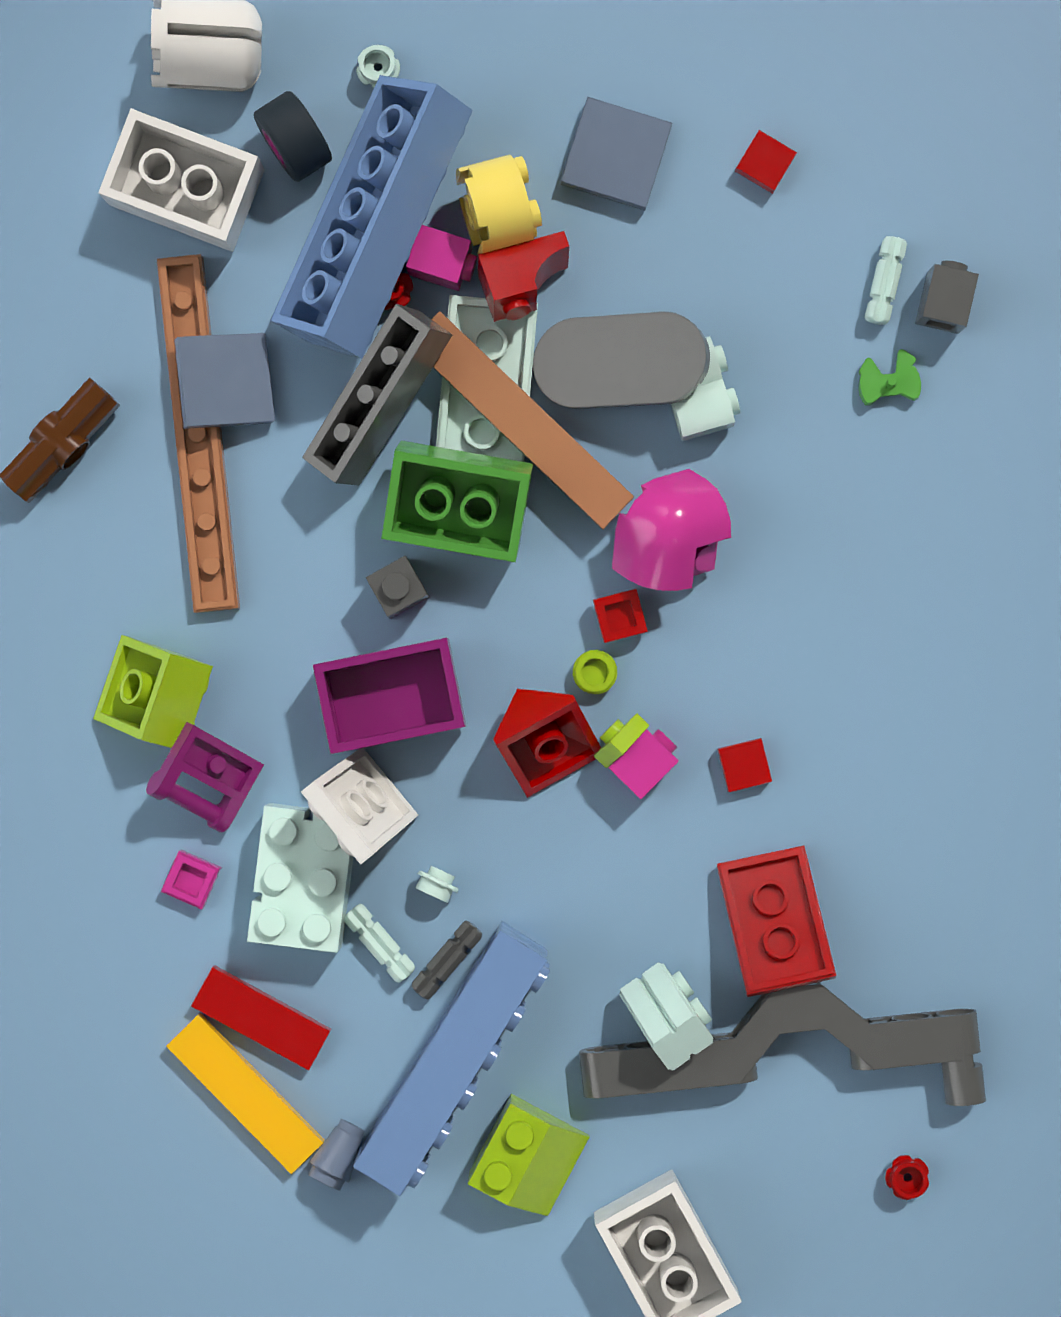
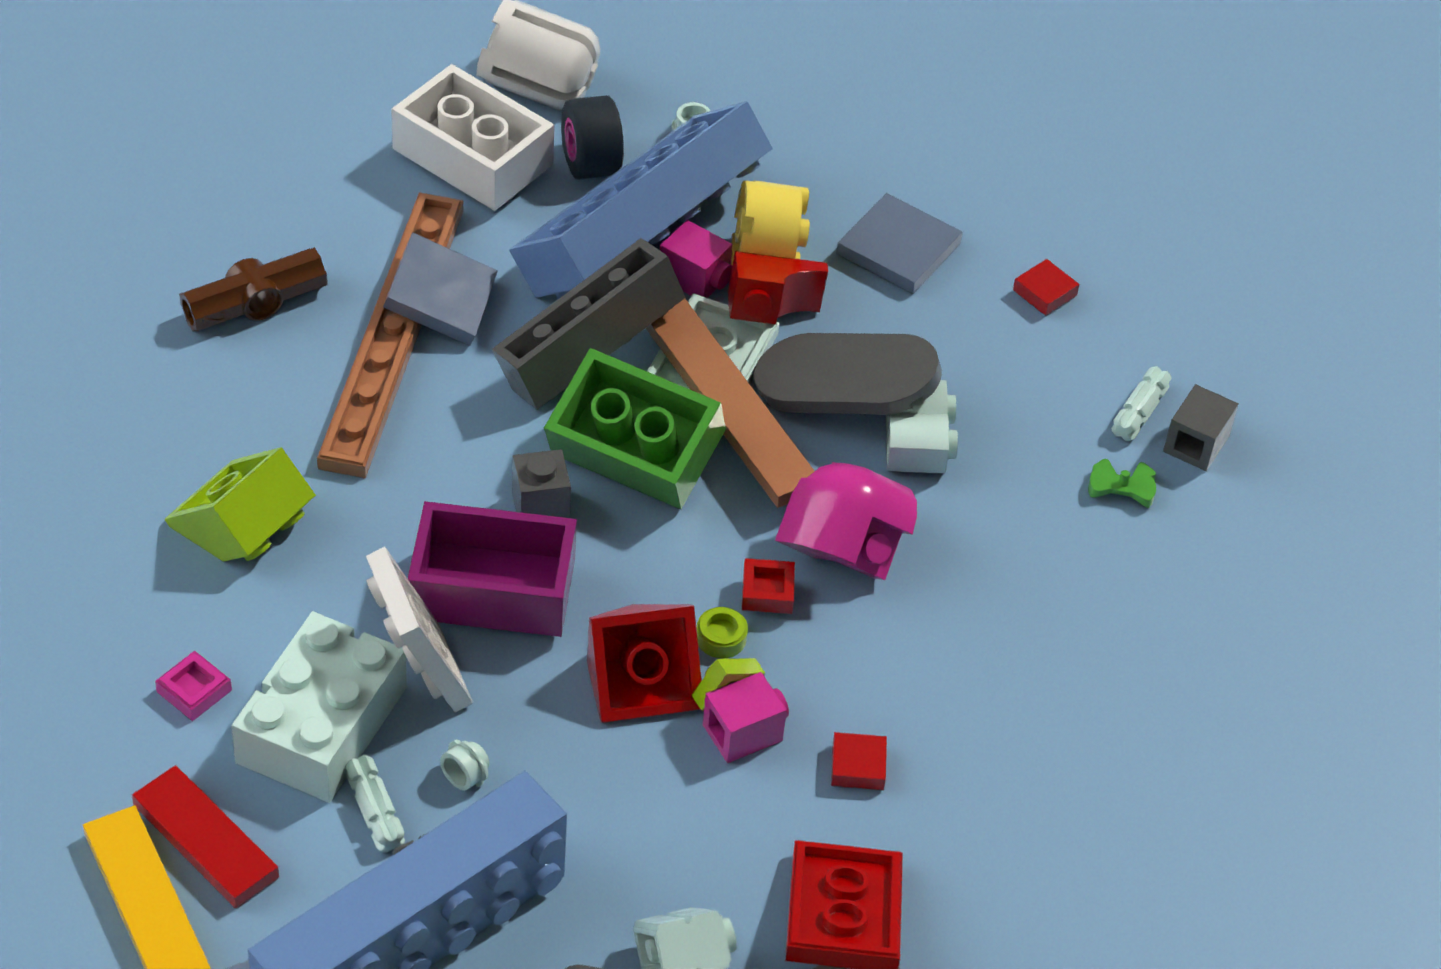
camera: 10 degrees right, 40 degrees down
(211, 763) = (273, 574): magenta plate -> none

